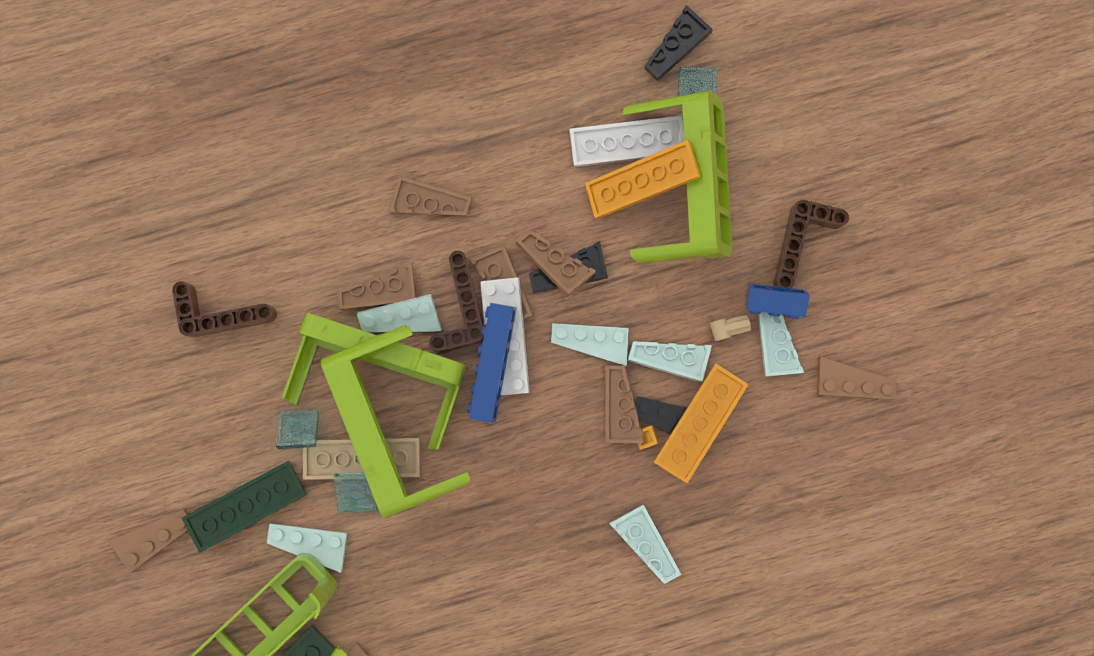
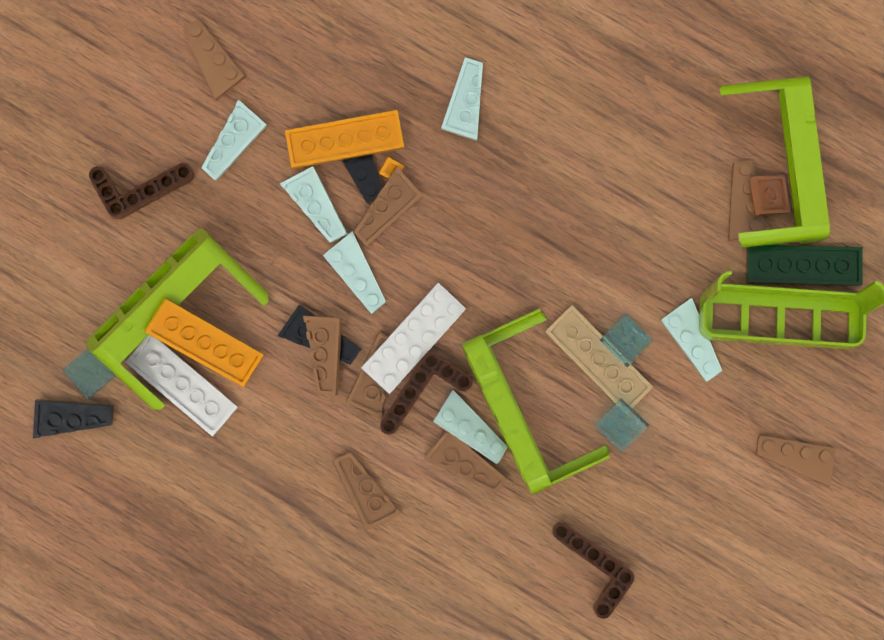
camera: 135 degrees left, 0 degrees up
(244, 506) = (712, 410): dark green plate -> none
(367, 433) = (573, 369): lime piece -> none
(492, 362) = (441, 327): blue brick -> none
(726, 328) = (257, 184): tan piece -> none
(776, 300) = (204, 164): blue brick -> none

